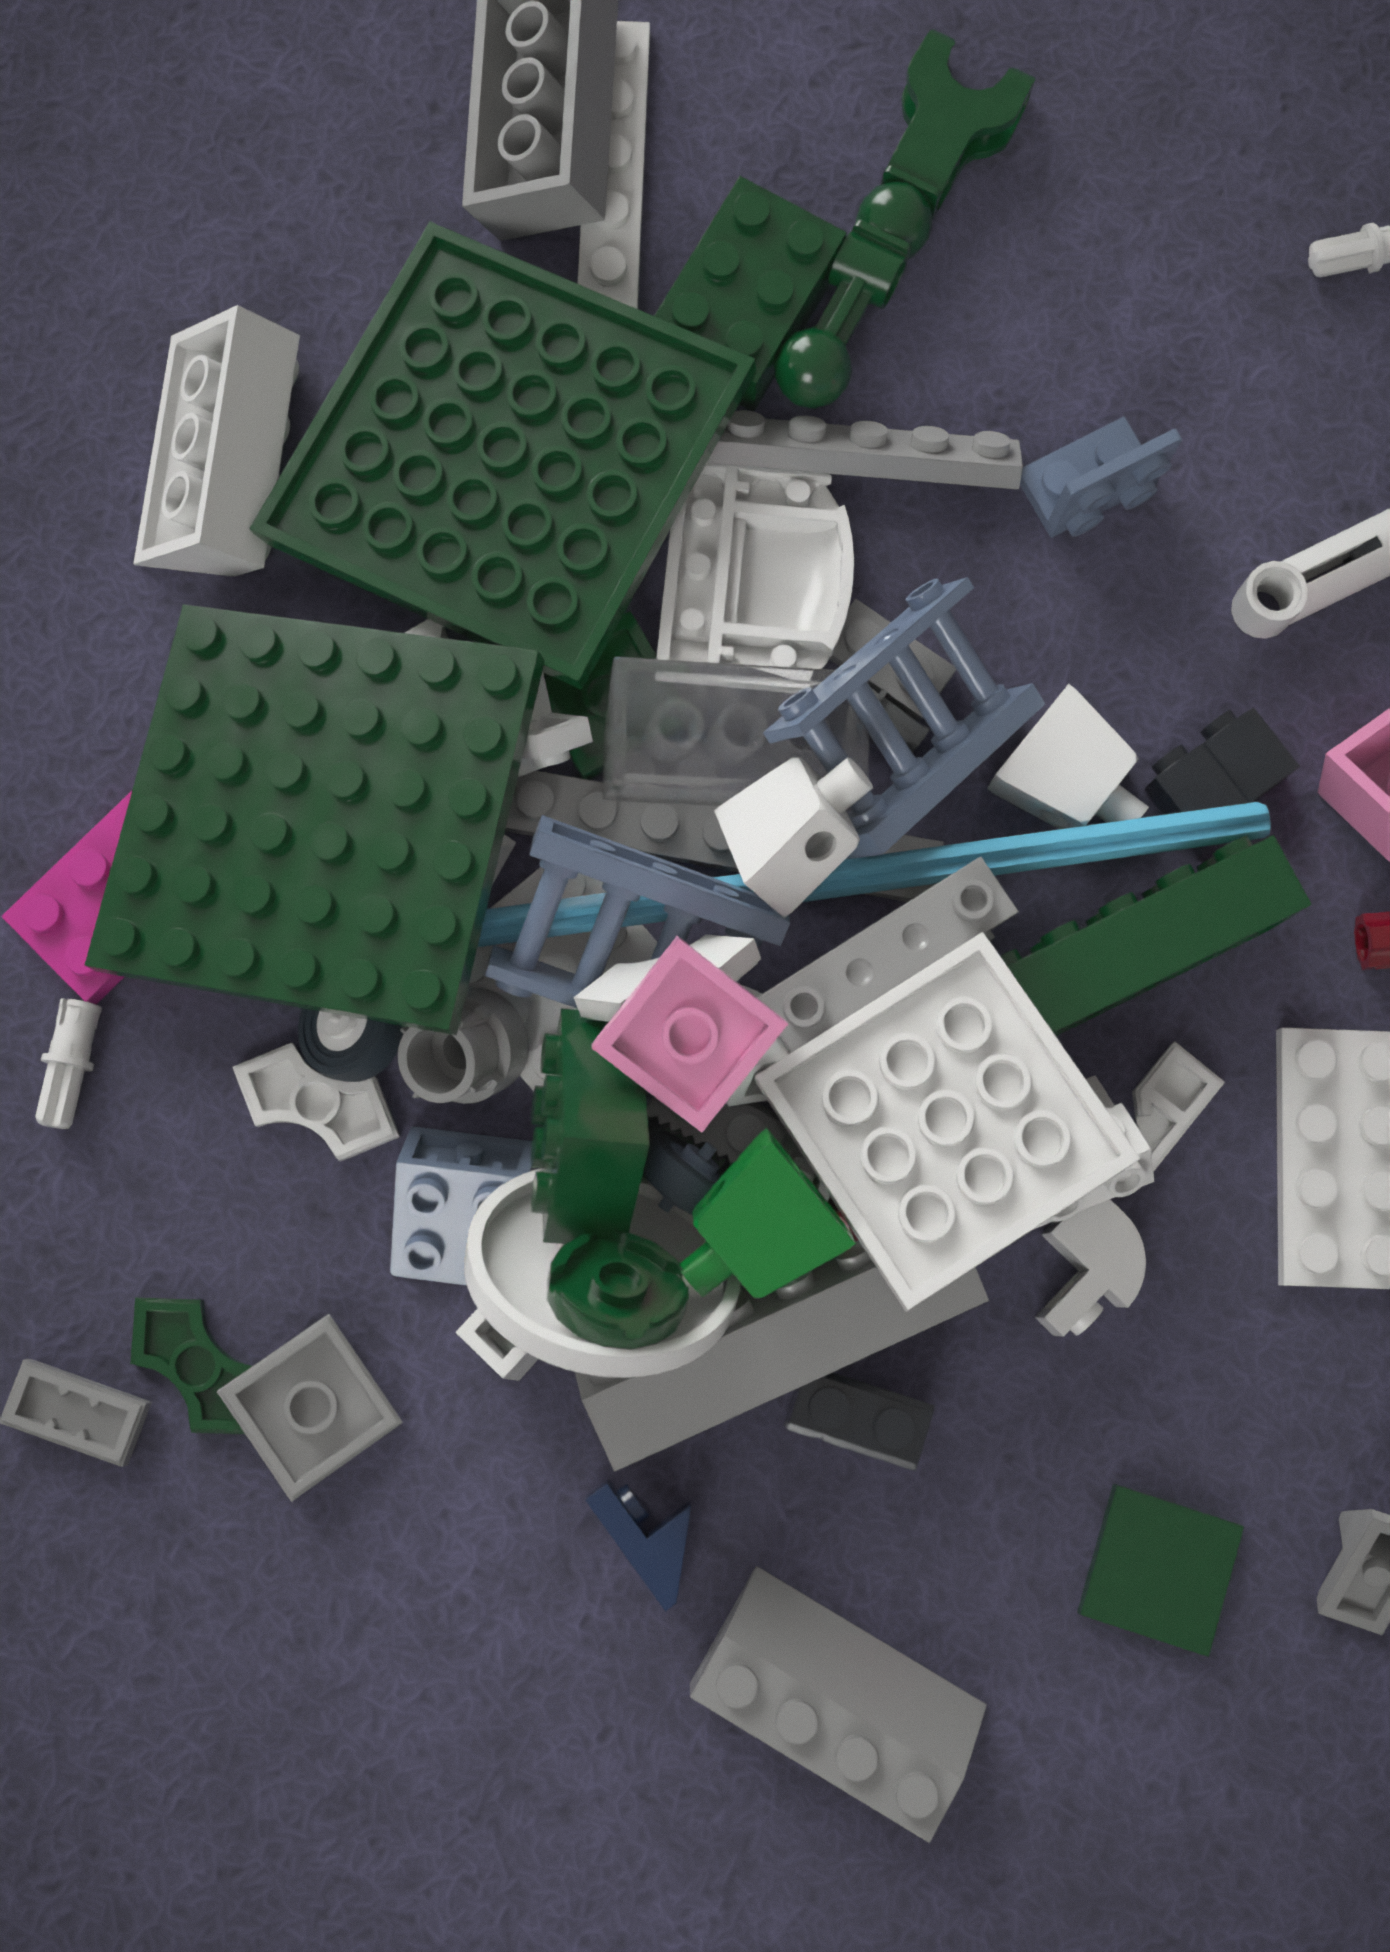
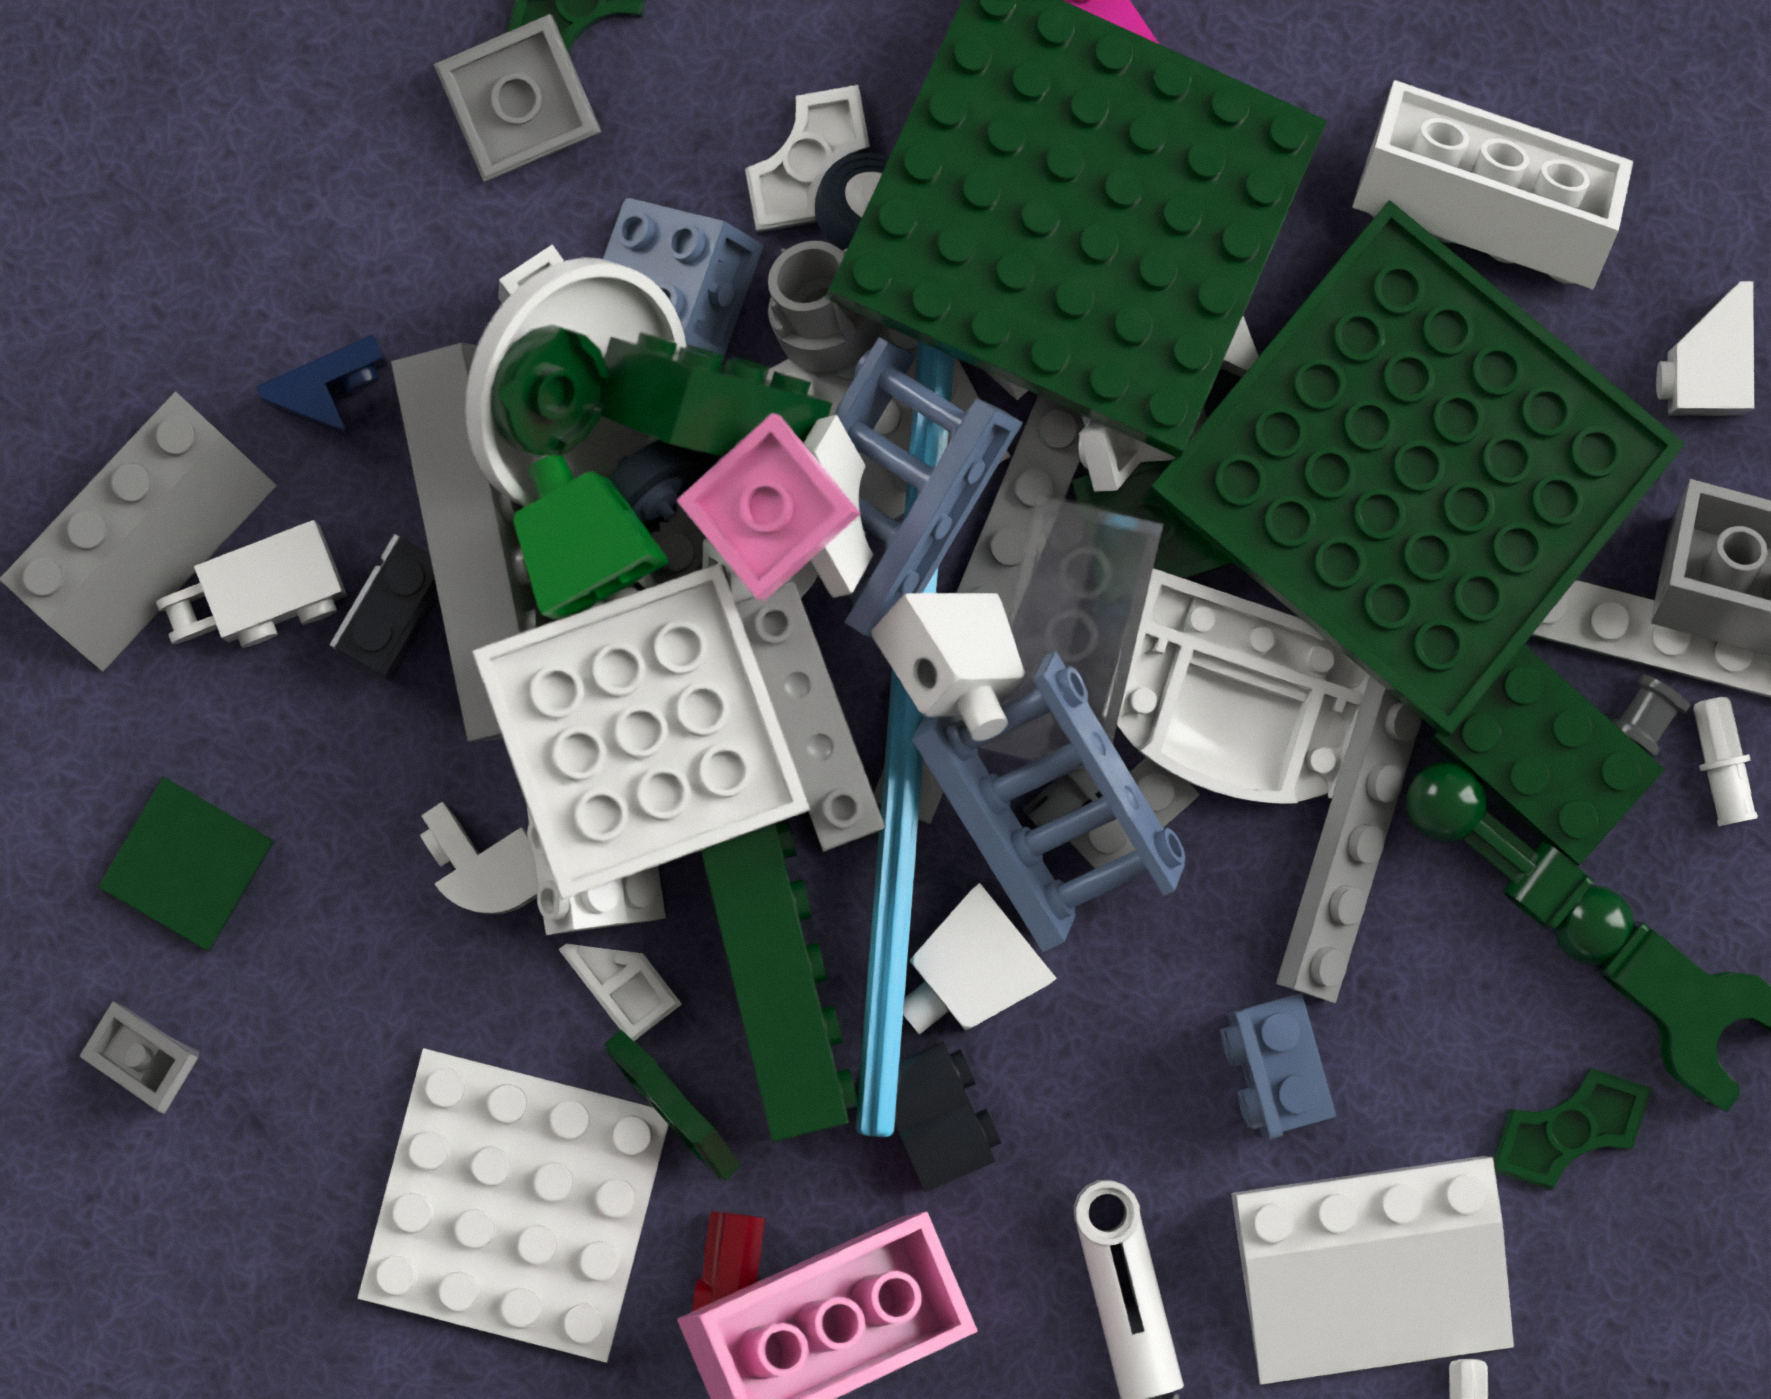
camera: 100 degrees right, 5 degrees up
(341, 220) = (1714, 361): none -> white slope
(683, 213) = (1651, 713): none -> dark grey bush
(715, 146) = (1724, 760): none -> white axle
(867, 1557) = (259, 588): none -> white brick
(1098, 235) = (1544, 1142): none -> dark green tile
(1247, 356) = (1374, 1269): none -> white slope
(1280, 1025) = (672, 1106): none -> dark green tile

